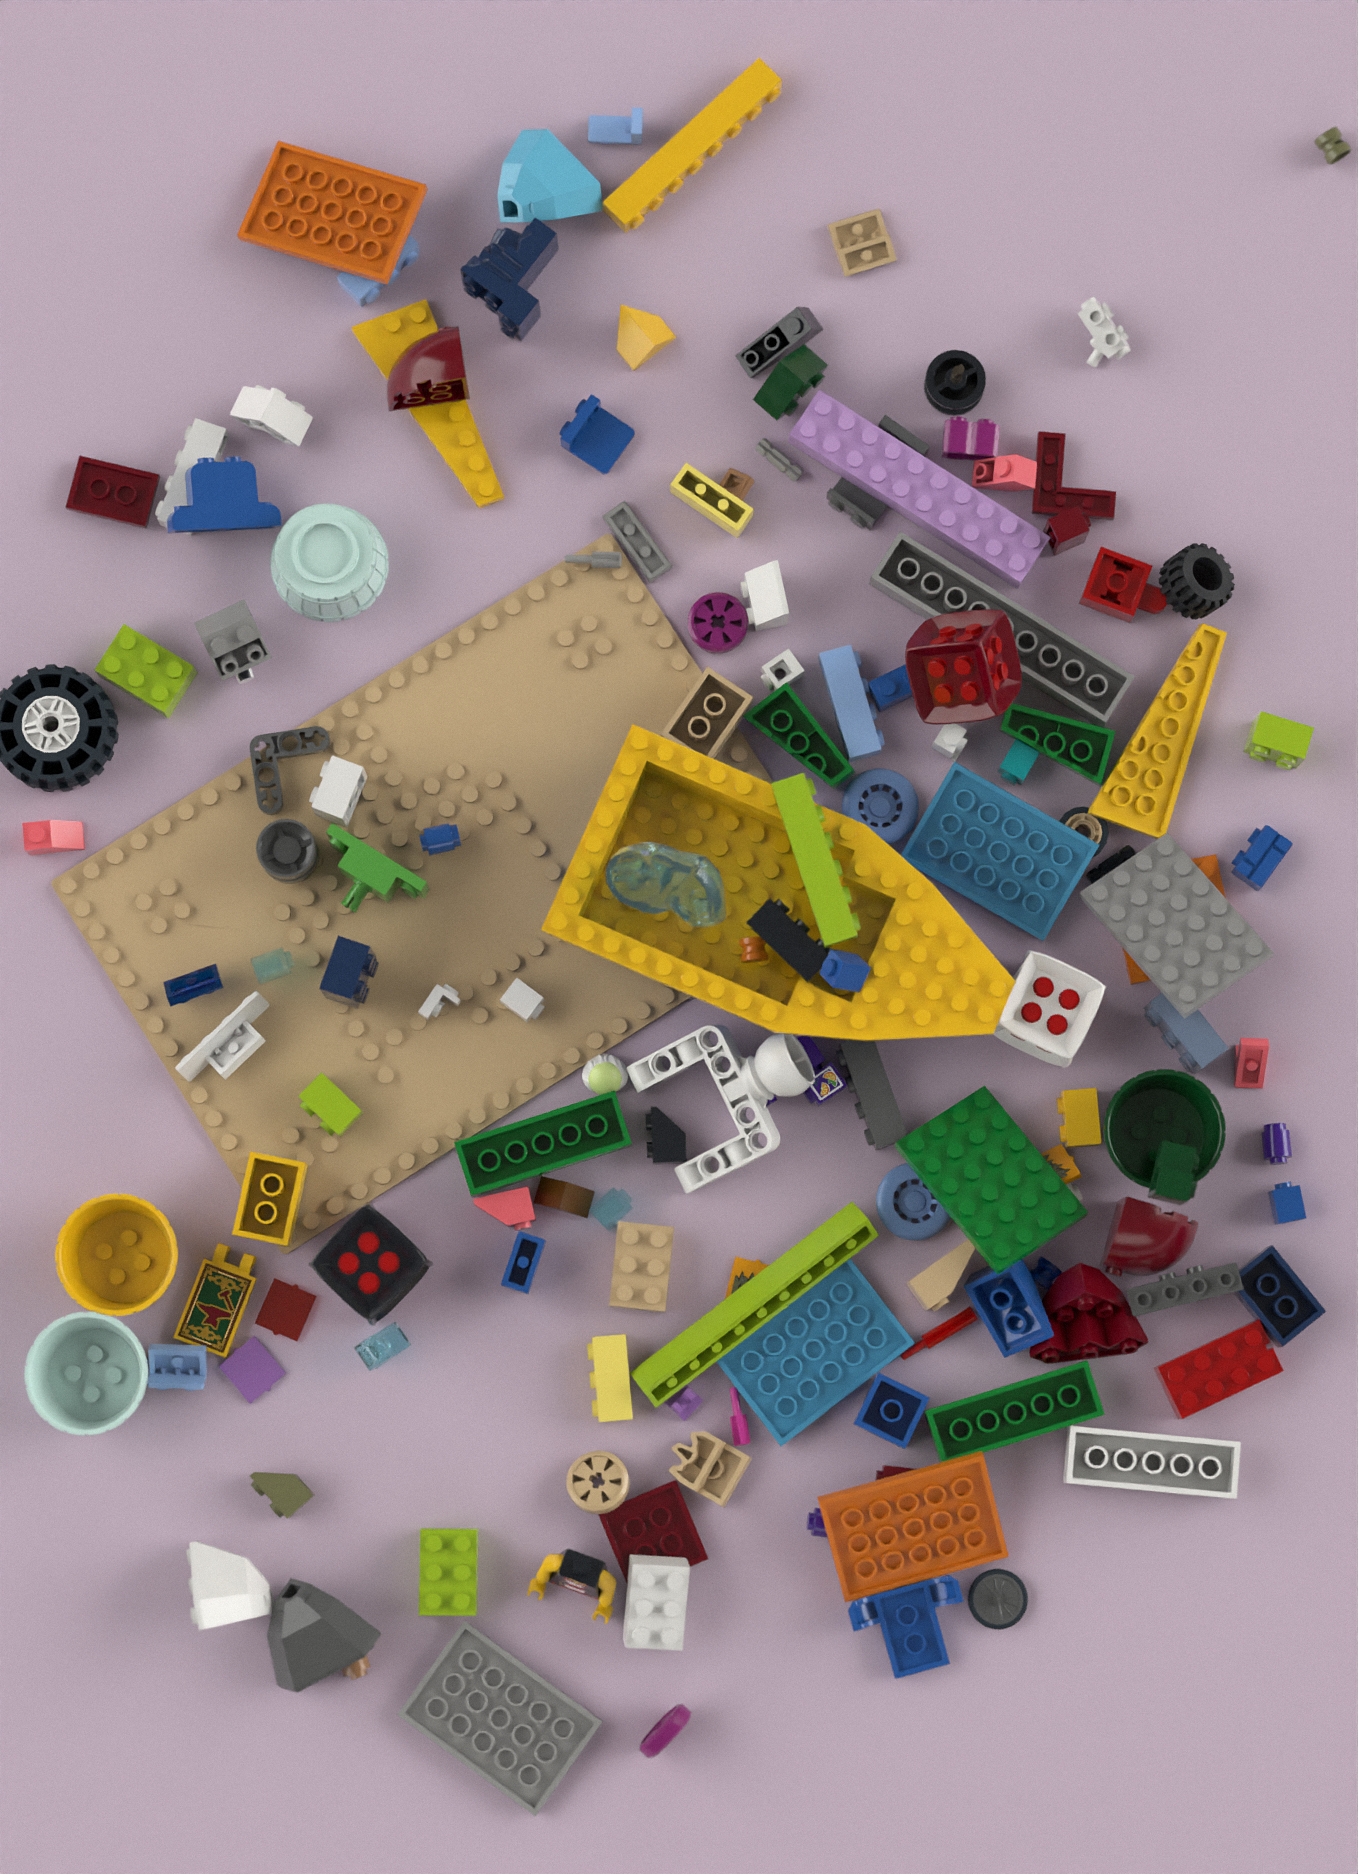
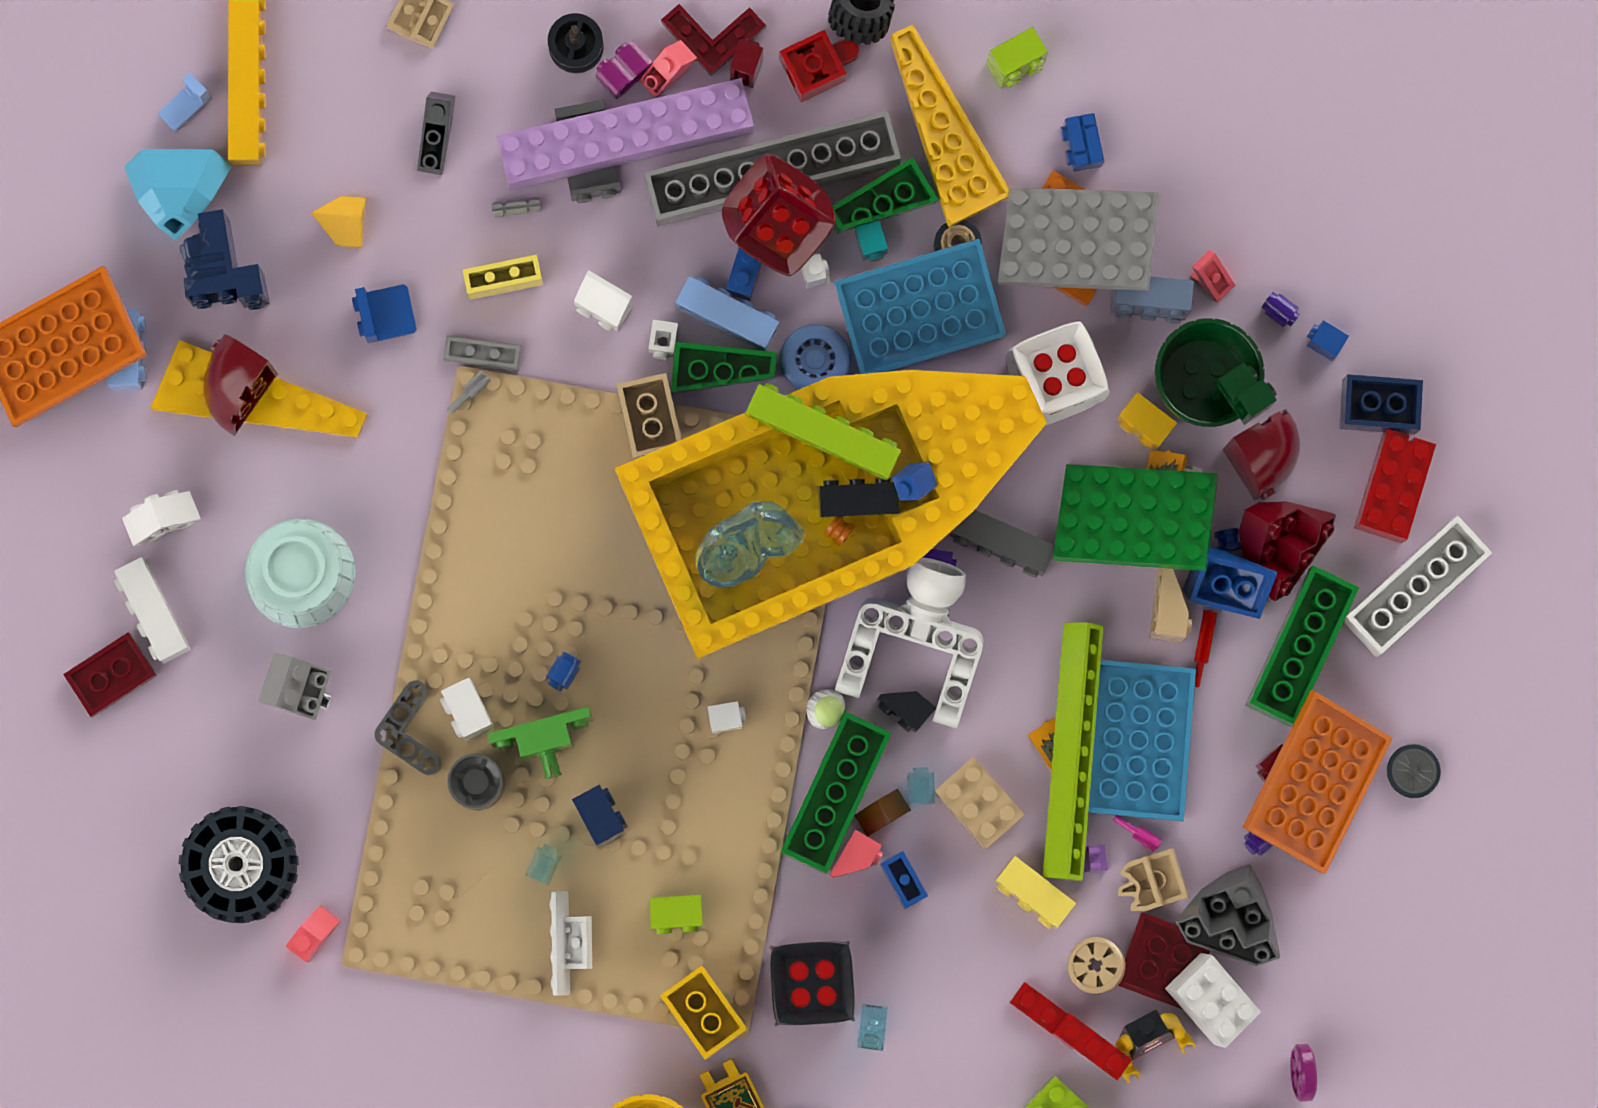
camera: 55 degrees left, 0 degrees up
(146, 671) = (257, 765): lime brick -> none
(193, 985) = (506, 931): clear blue plate -> none
(222, 499) = (188, 604): blue brick -> none
(285, 1309) = (785, 1071): clear red piece -> none
(434, 1003) = (672, 779): white bracket -> none
(525, 1509) = (1070, 1031): none -> red bracket
(719, 606) = (600, 361): magenta wheel -> none
(737, 483) = (506, 249): medium nougat tile -> none
(737, 1558) = (1232, 918): none -> dark grey brick
(790, 380) = (471, 150): dark green brick -> none
(826, 1085) = (971, 564): dark purple brick -> none
(891, 1410) = (1227, 726): blue brick -> none
(909, 1622) = (1377, 843): blue piece -> none
(912, 1202) = (1100, 583): medium blue wheel -> none
(1110, 864) = (995, 246): black axle -> none
(1184, 1289) = (1323, 457): dark grey bracket -> none

